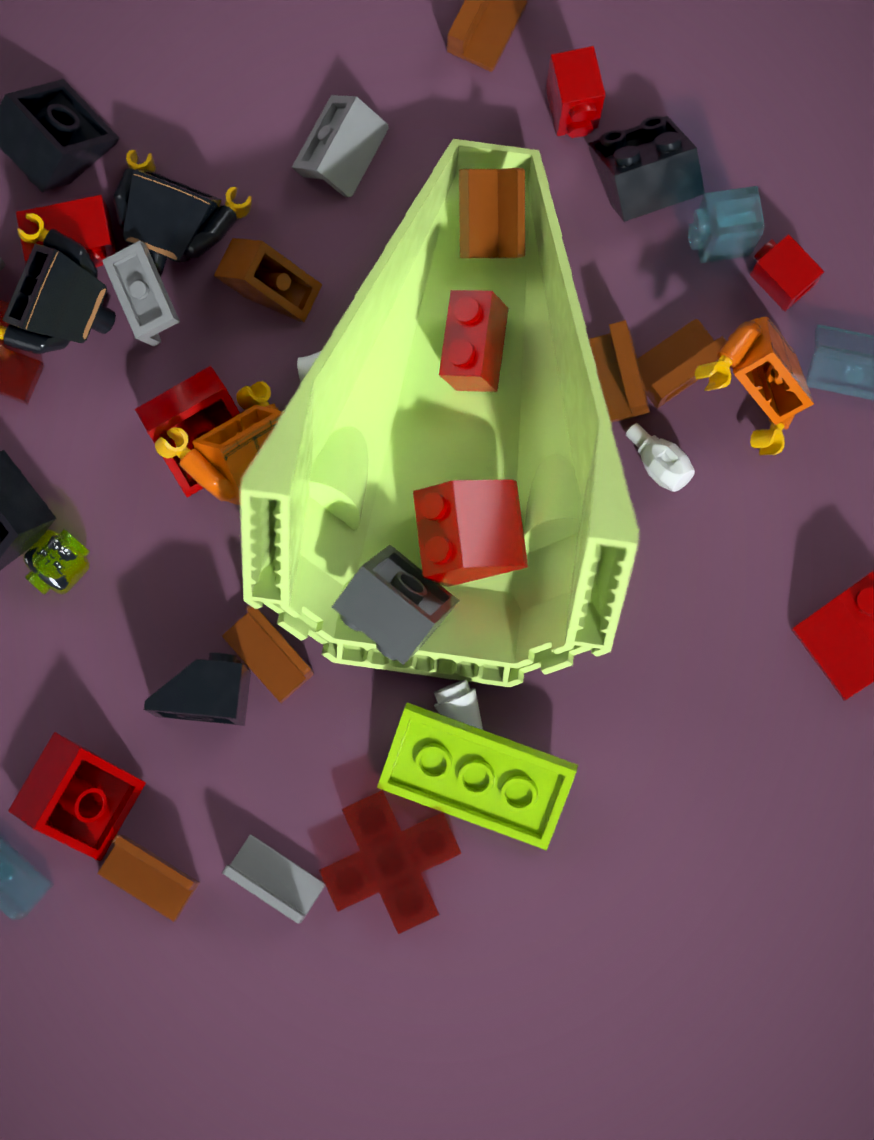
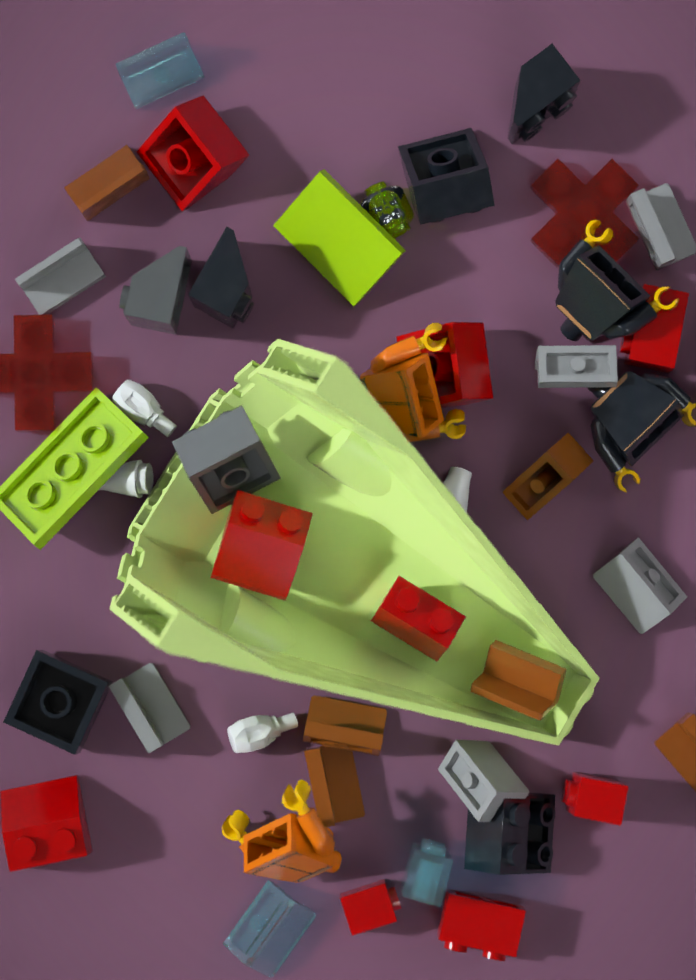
camera: 115 degrees right, 5 degrees up
(105, 597) = (339, 237): none -> lime tile
(248, 758) = (158, 292): none -> dark grey slope
(267, 654) = (237, 346): dark orange panel -> none
(377, 728) = (142, 407): none -> white piece
(607, 212) = (480, 777): none -> light grey panel
(687, 582) = (150, 707): none -> light grey panel
(728, 674) = (58, 702): none -> black brick
(750, 152) = (481, 925): none -> red brick

